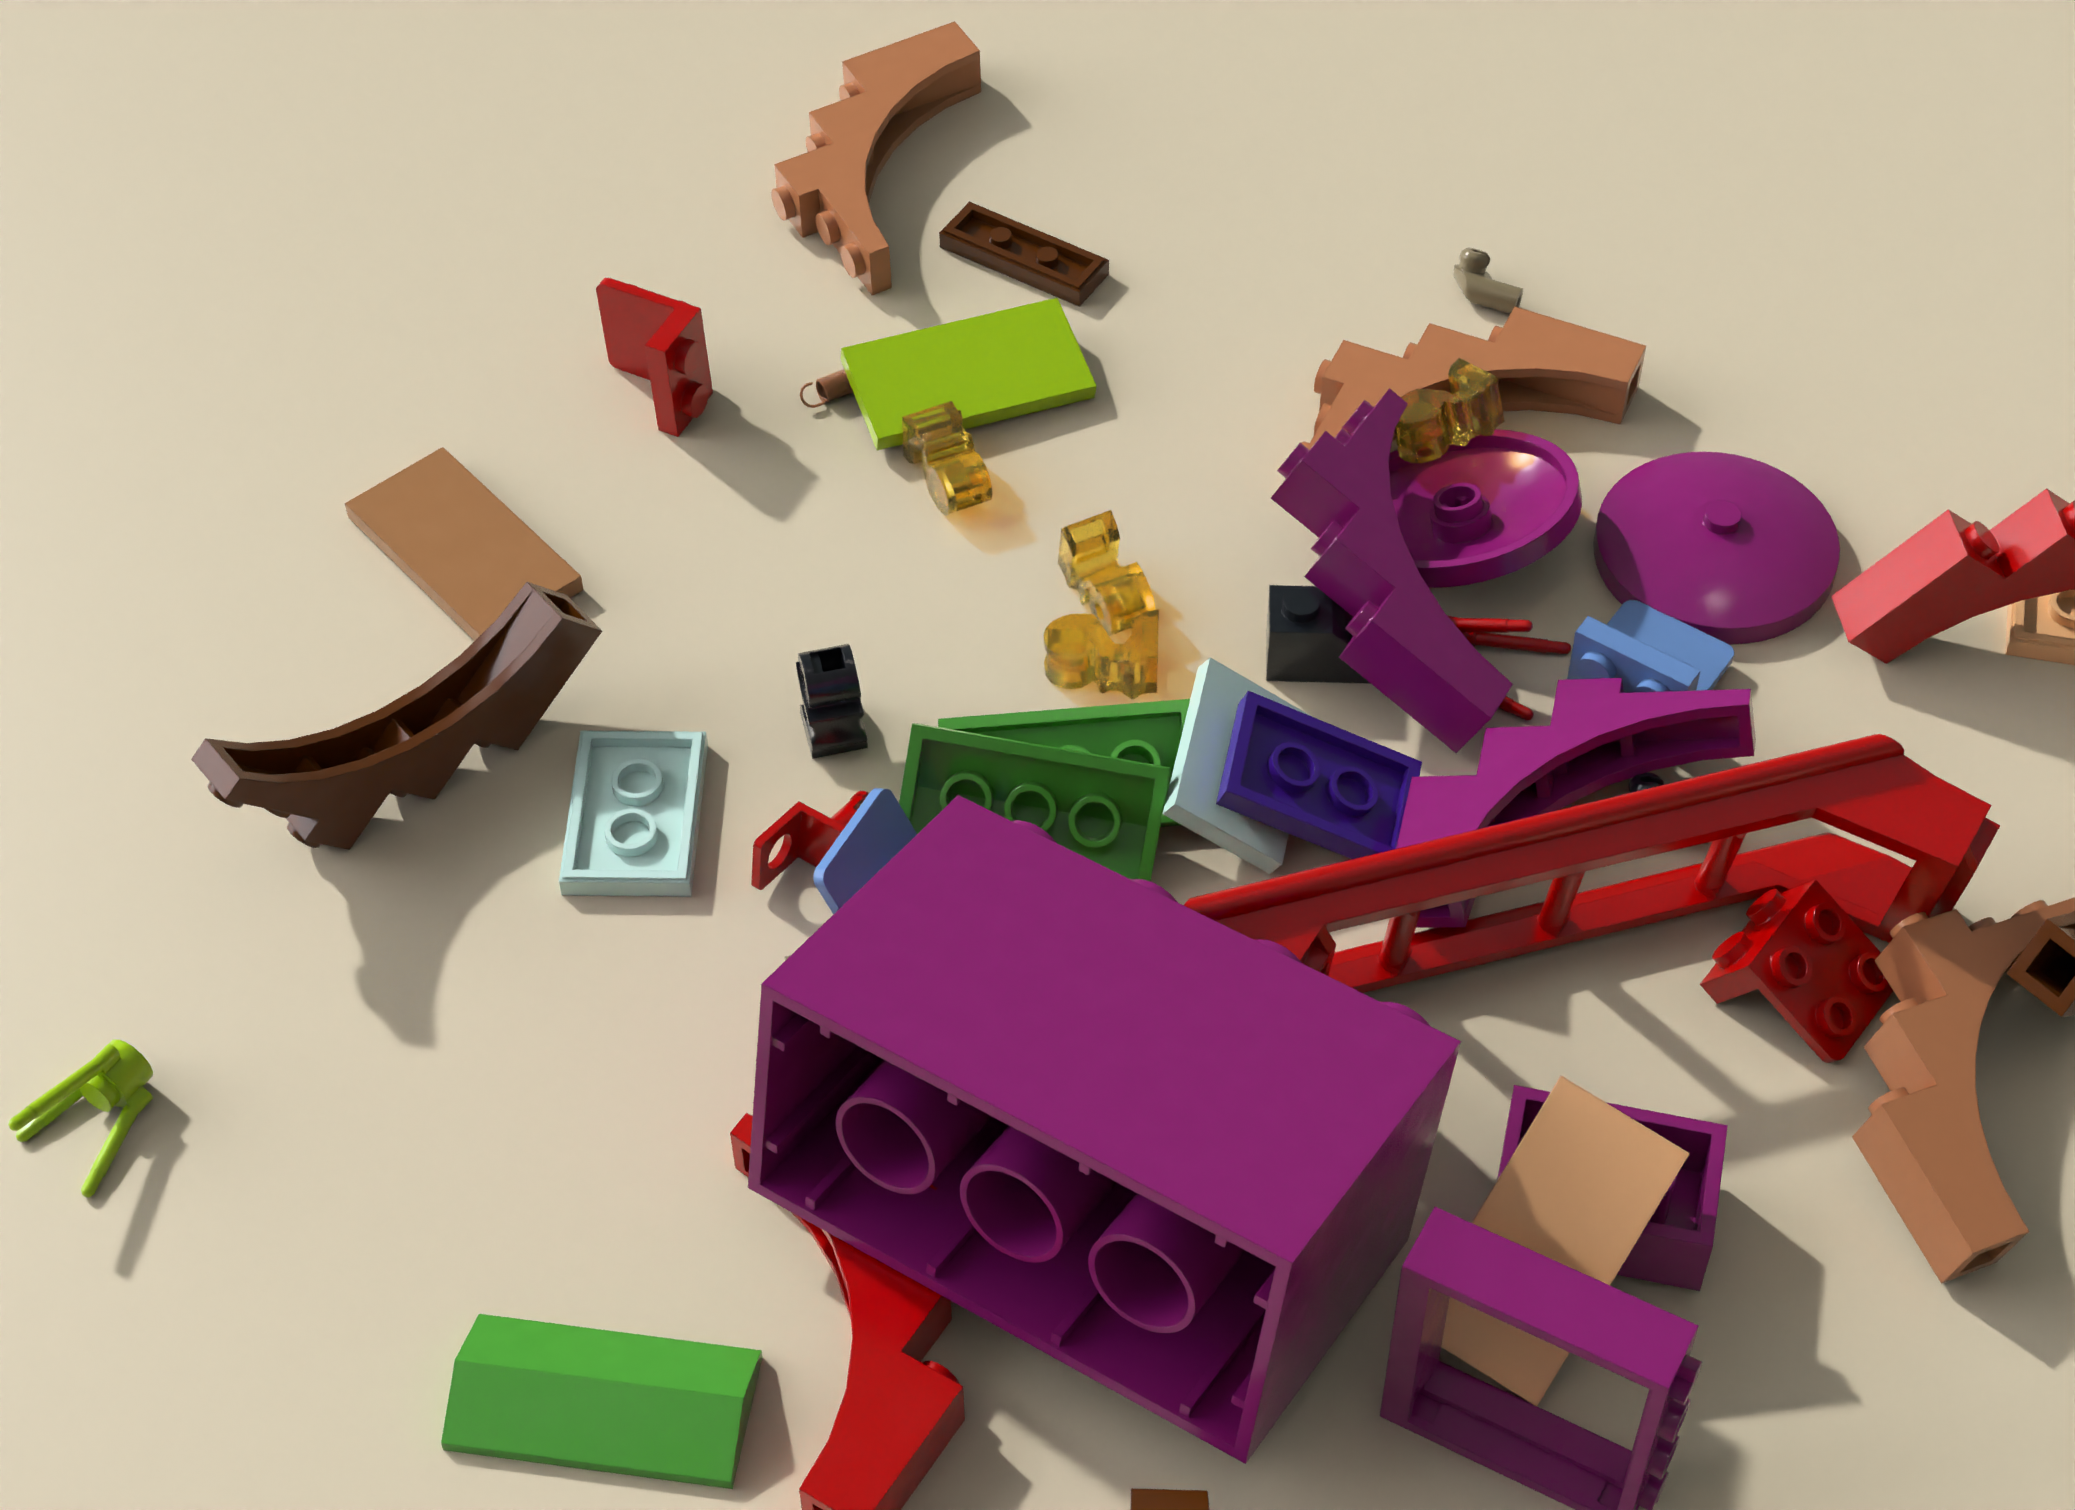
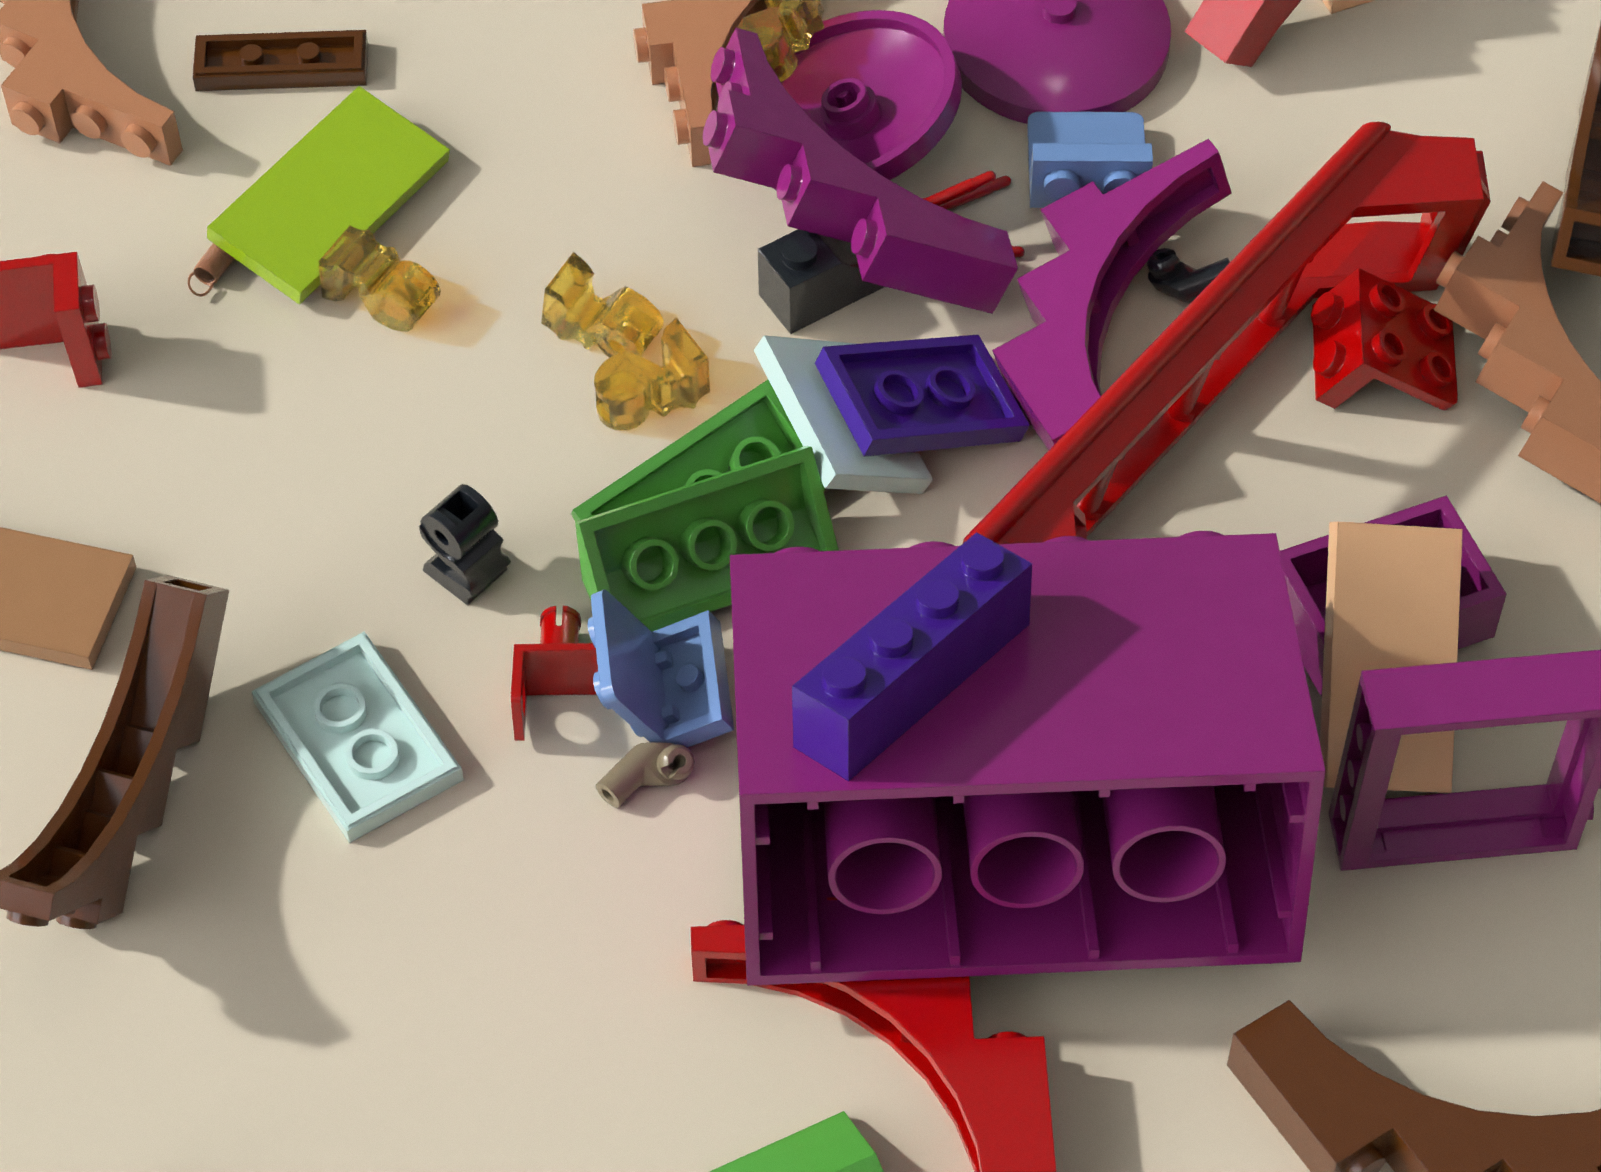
camera: 35 degrees left, 5 degrees up
(1003, 949) = (911, 656): none -> dark purple brick

